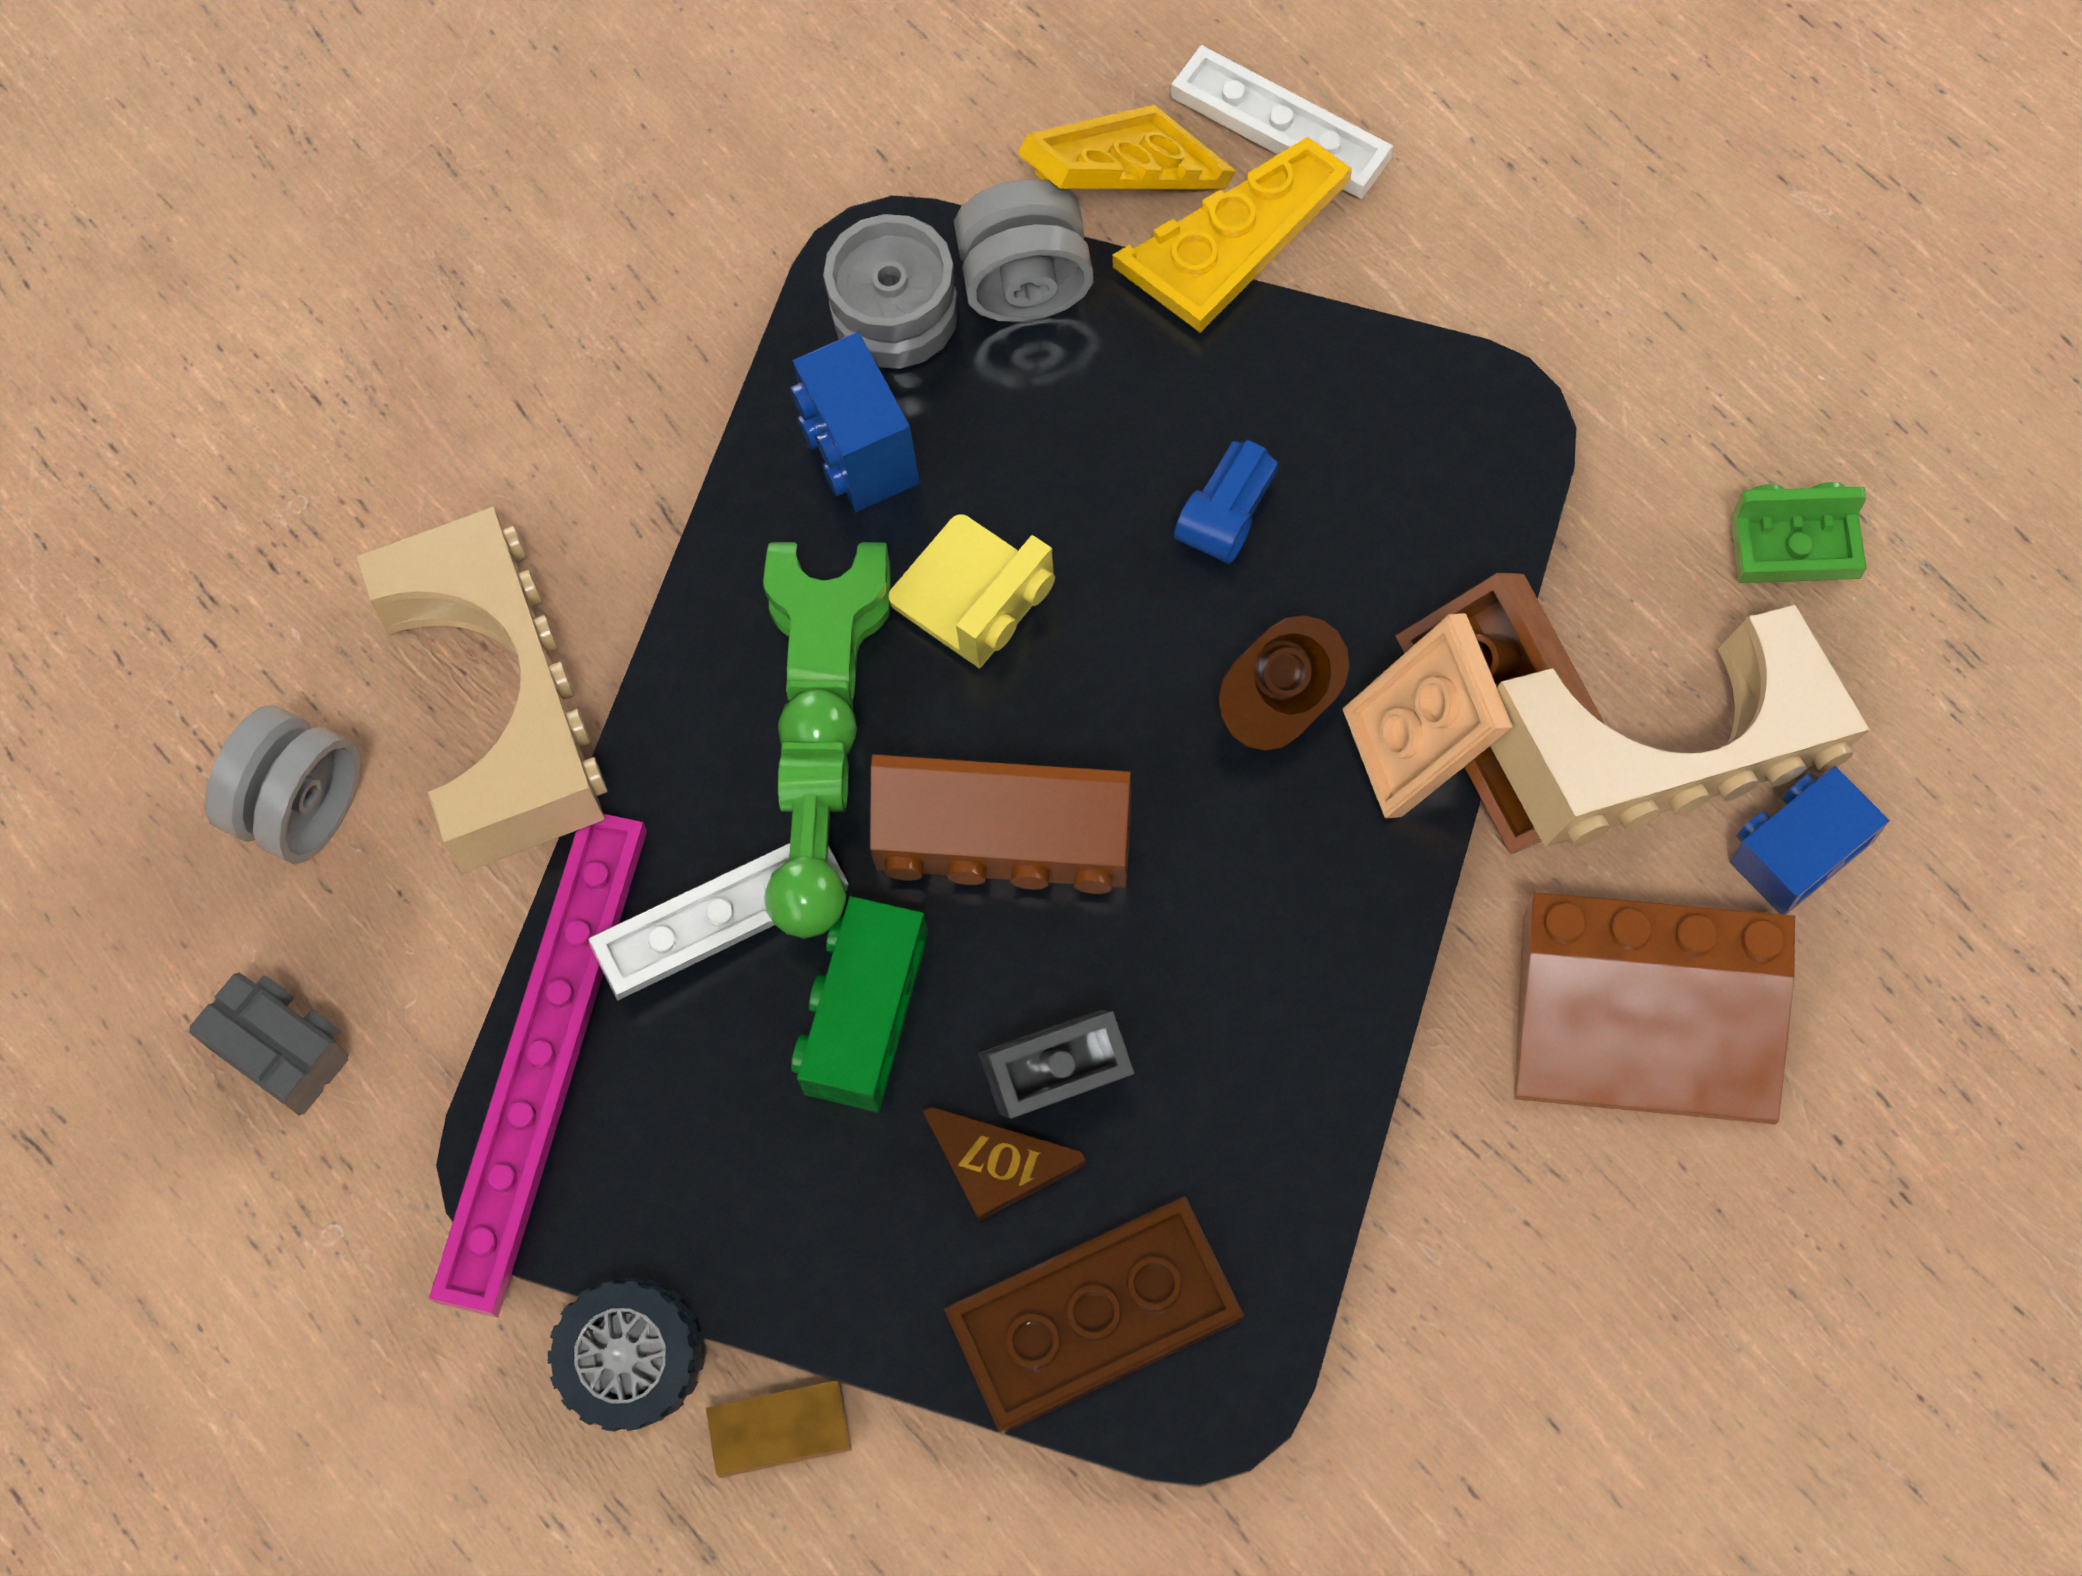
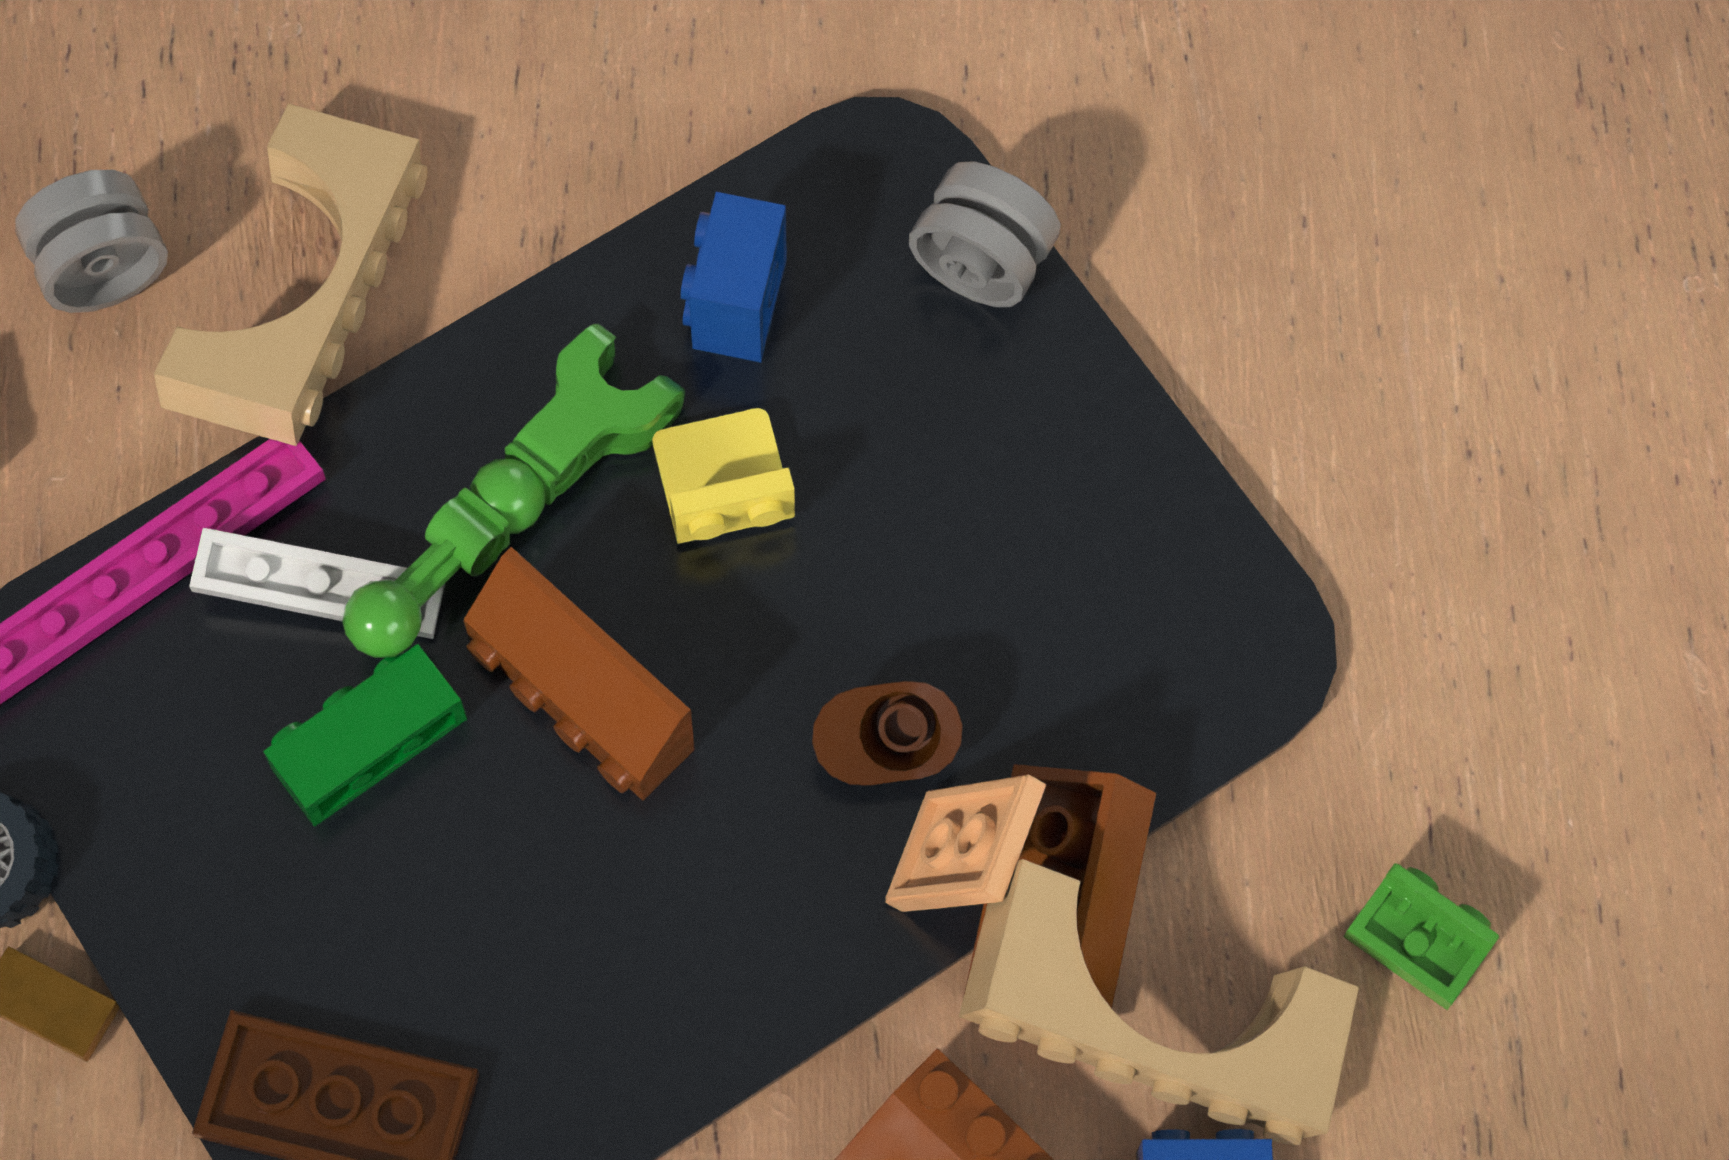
camera: 30 degrees right, 0 degrees up
(894, 287) = (858, 190): light grey wheel -> none
(996, 1163) = (362, 935): reddish brown tile -> none
(1056, 1063) = (460, 891): dark grey brick -> none
(1125, 152) = (1140, 212): yellow wing -> none
(1222, 513) = (963, 564): blue piece -> none
(1227, 242) = (1157, 347): yellow wing -> none
(1276, 116) = (1305, 279): white plate -> none

